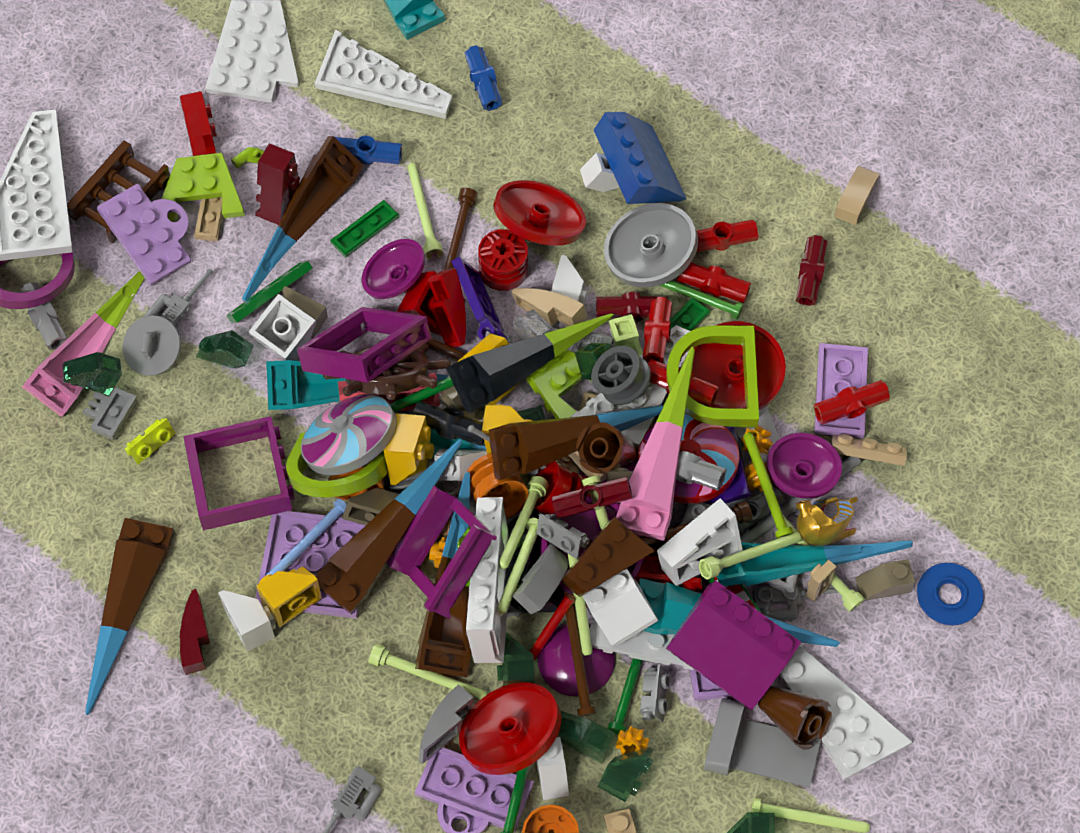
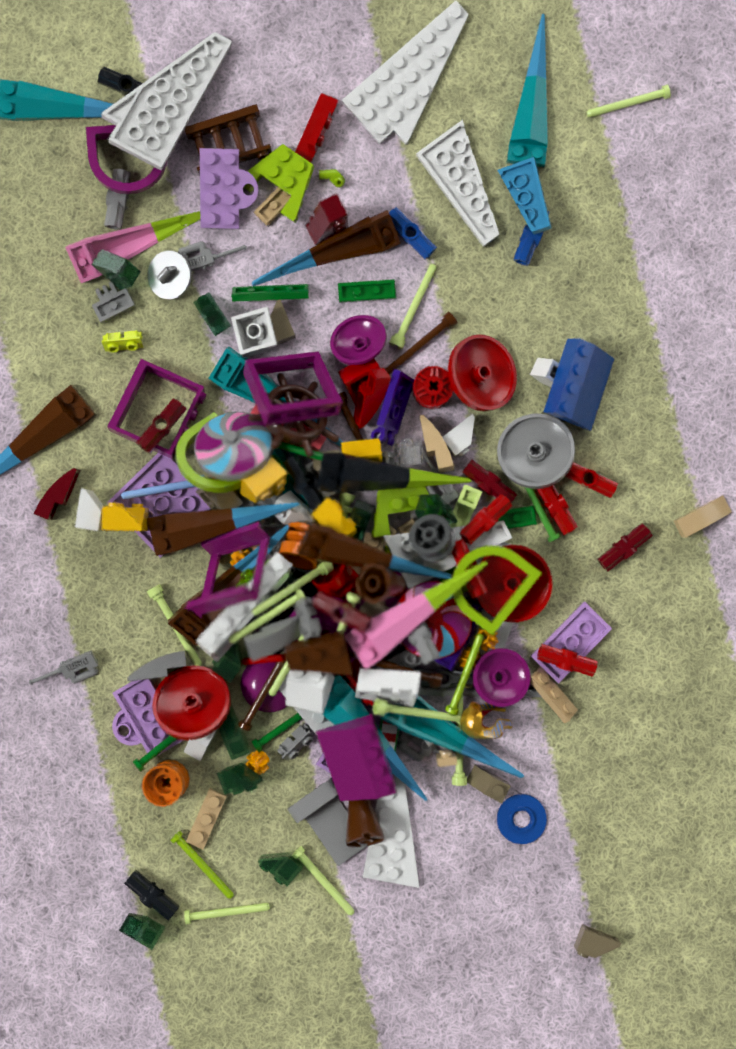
camera: 40 degrees right, 25 degrees up
(257, 474) = (169, 416): none -> dark red piece
(450, 44) = (526, 189): none -> dark azure wing

